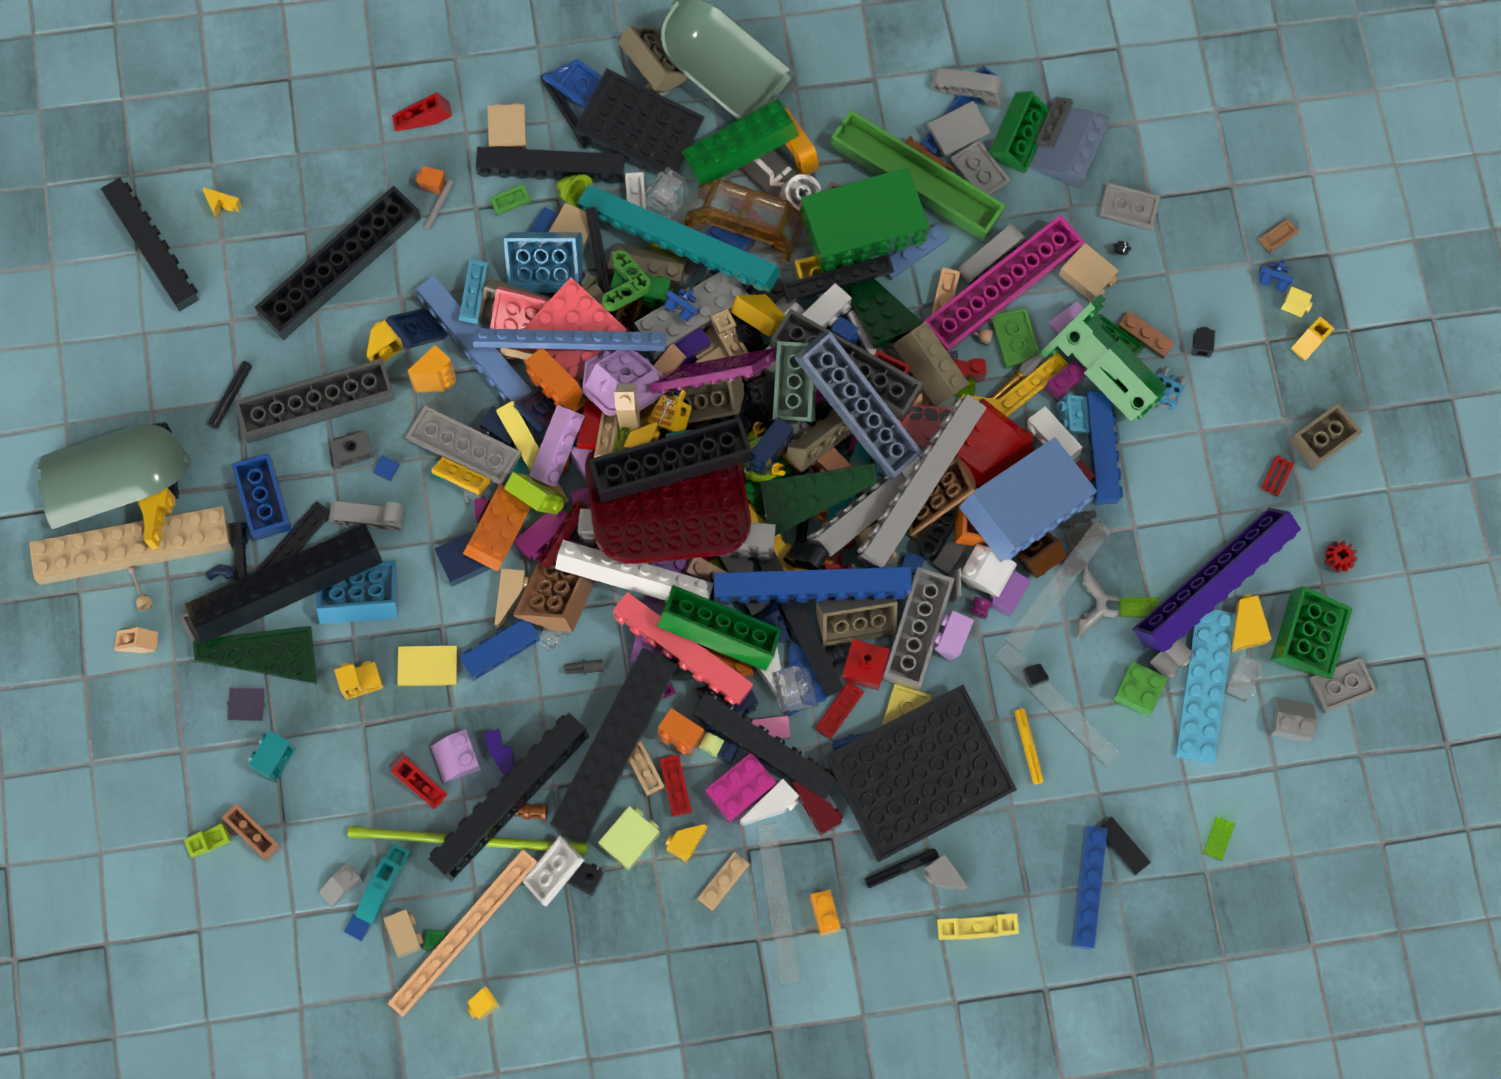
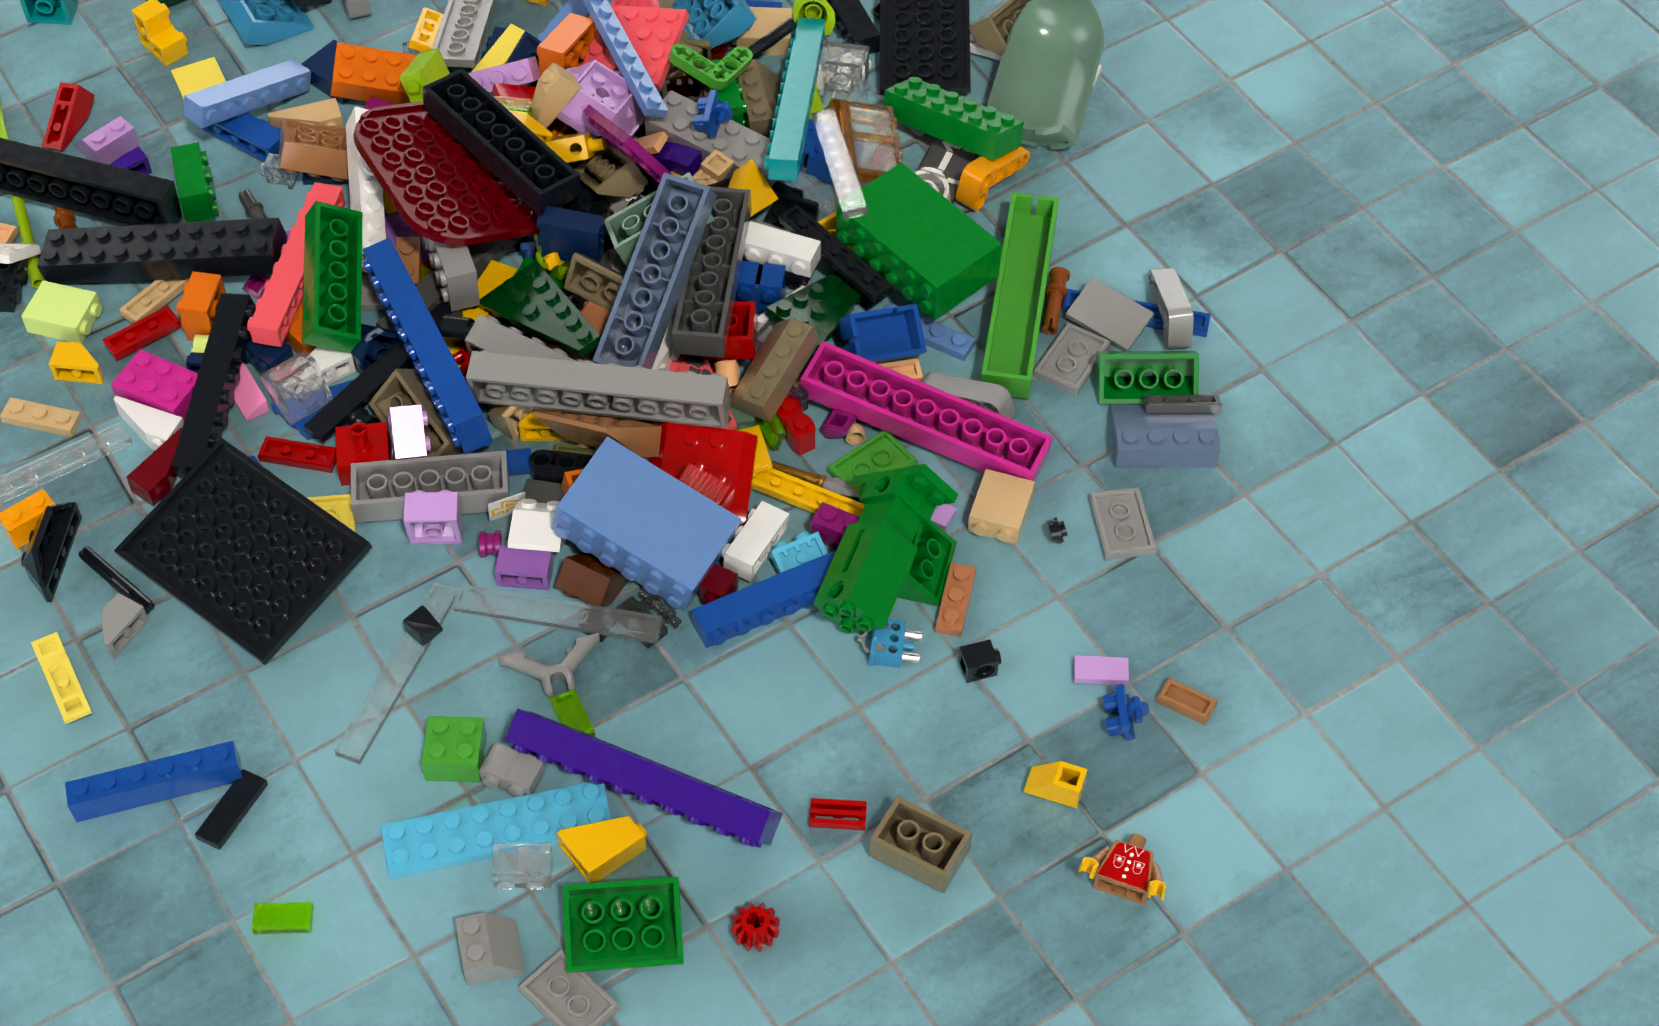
camera: 70 degrees right, 20 degrees down
(473, 631) = (246, 93): none -> medium blue brick
(547, 701) = (193, 183): none -> green brick
(776, 238) = (839, 164): none -> clear tile
(859, 907) = (51, 546): none -> black wedge
(874, 627) = (407, 432): none -> slope
(923, 281) = (883, 337): none -> blue piece
(977, 342) = (838, 424): none -> magenta slope
(1011, 450) = (713, 488): none -> red brick
(1029, 746) = (328, 658): yellow axle -> none
(1236, 274) = (1101, 670): none -> lavender tile
(1297, 302) = (1100, 748): light yellow brick -> none
(1388, 327) = (1126, 871): none -> torso

